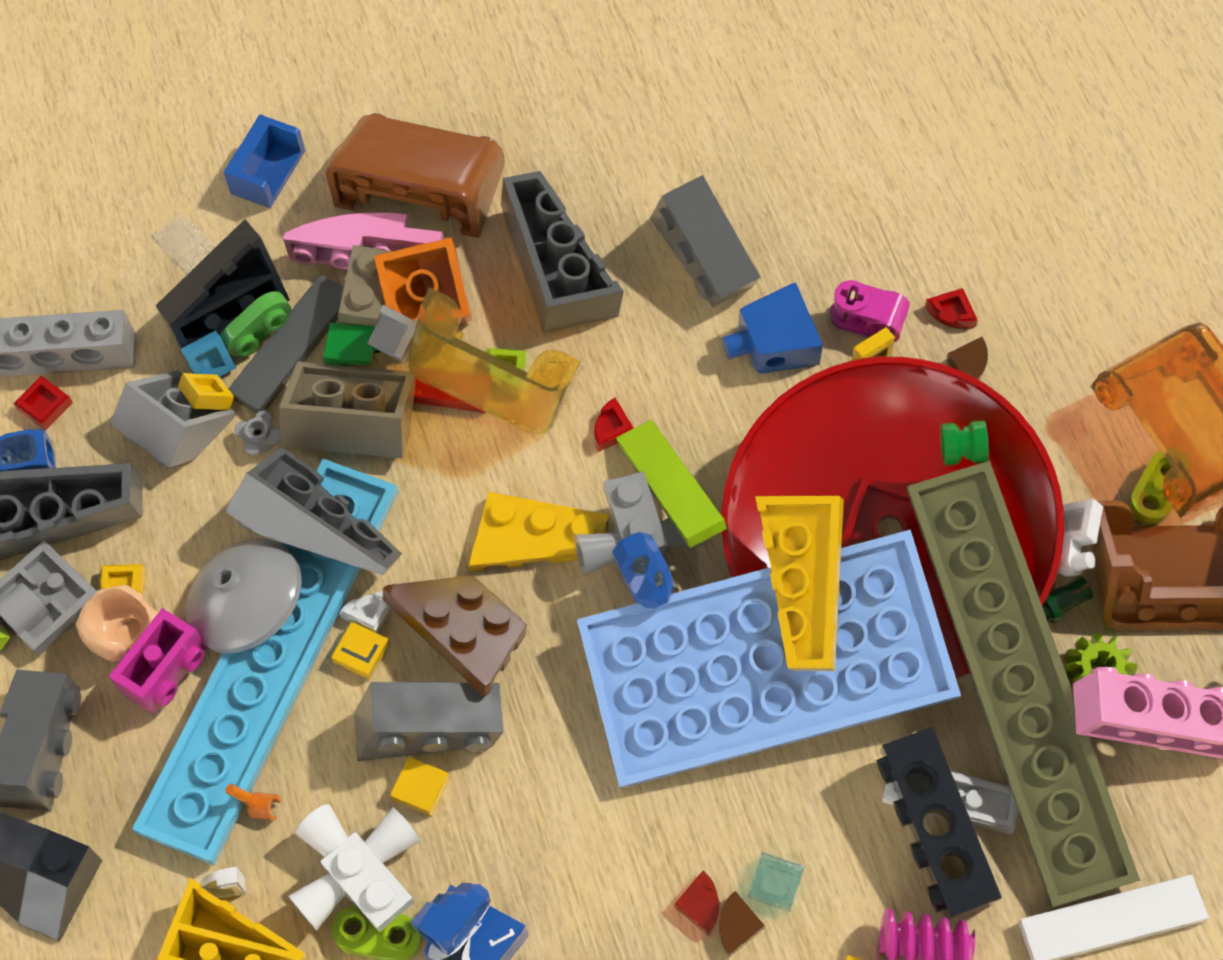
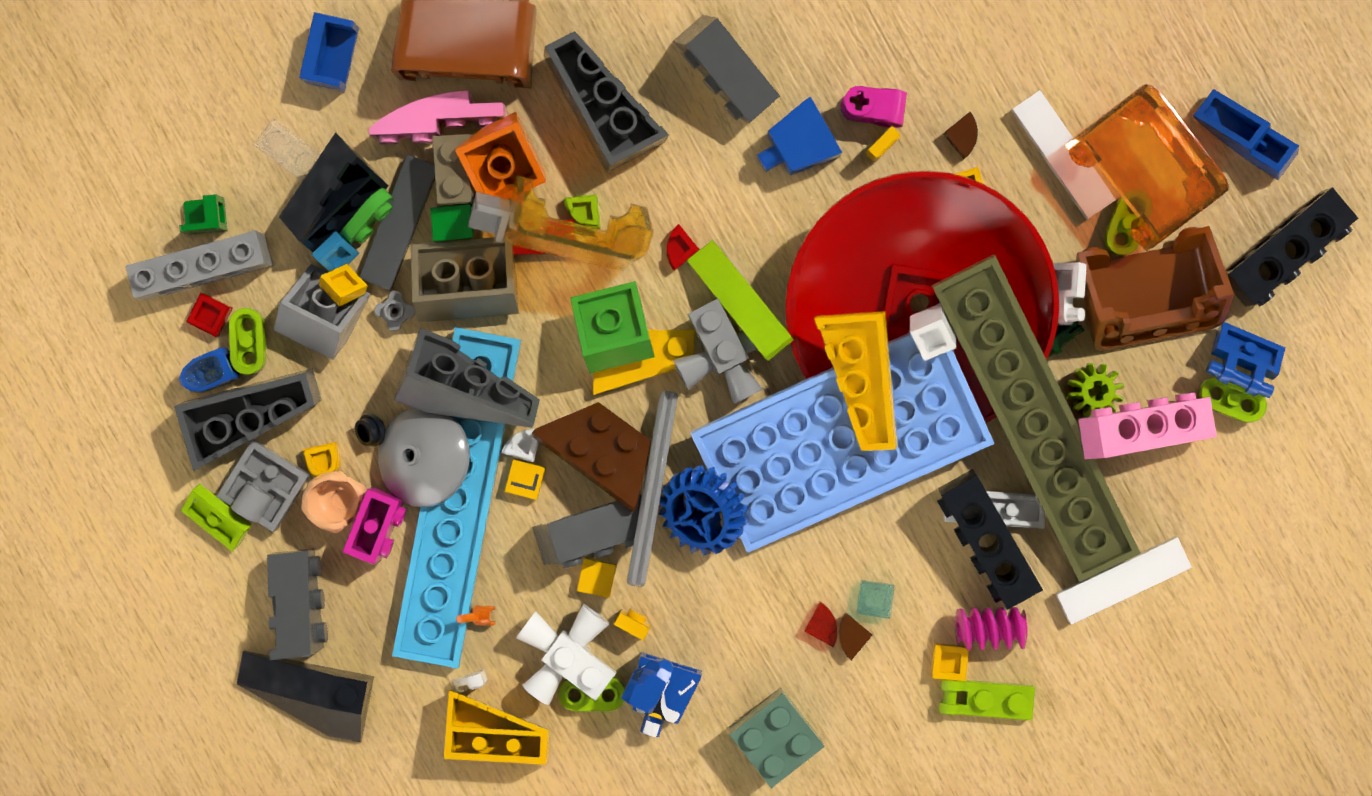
camera: 20 degrees left, 25 degrees up
(74, 298) = (204, 215): none -> green panel
(74, 437) = (247, 341): none -> lime plate
(188, 557) = (370, 430): none -> black plate
(452, 848) = (633, 623): none -> yellow plate
(509, 484) = (612, 327): none -> bright green container
(512, 680) = (652, 489): none -> light grey axle
(587, 733) = (707, 493): none -> blue gear
(643, 570) = (737, 389): blue rock -> none
(899, 541) = (932, 332): none -> white panel
(952, 309) = (942, 86): red tile -> none
(968, 442) = (973, 243): green wheel -> none
(1100, 427) = (1049, 138): none -> tile

